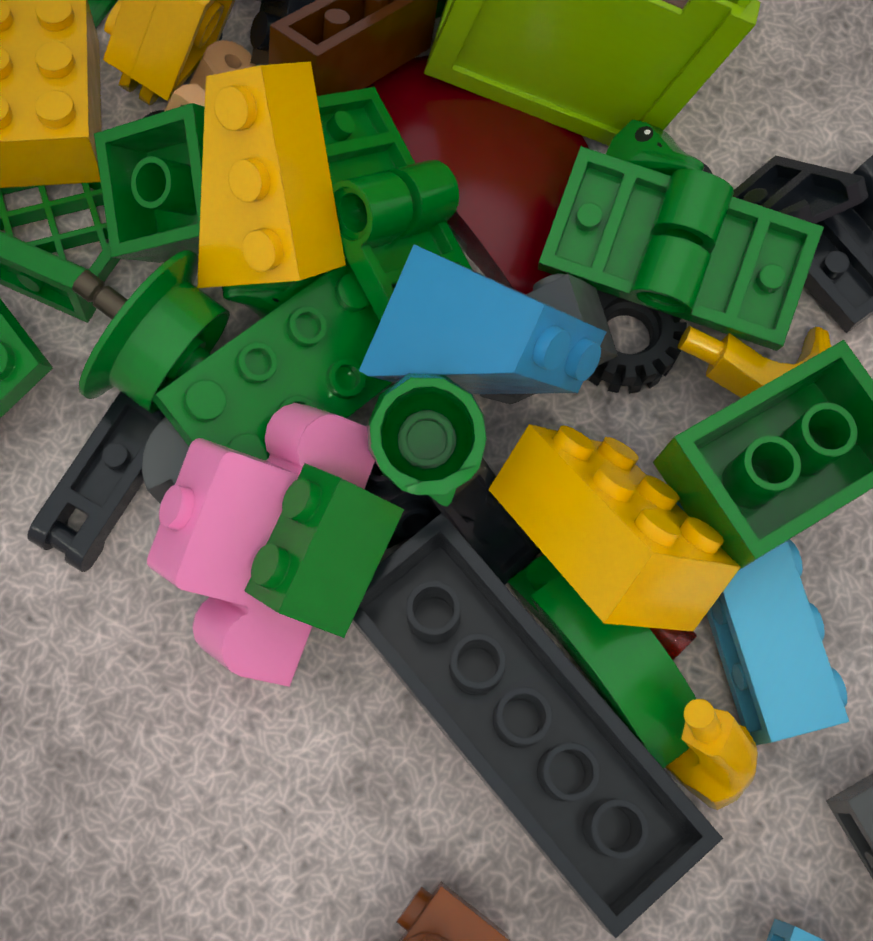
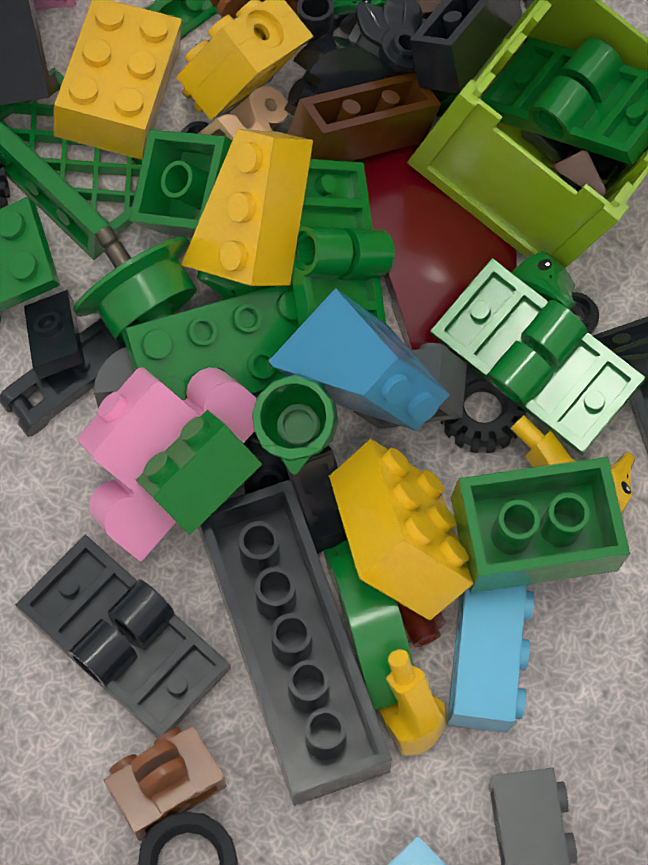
camera: 20 degrees right, 5 degrees down
(68, 434) = (53, 334): none -> black plate
(301, 792) = (123, 636): none -> black plate

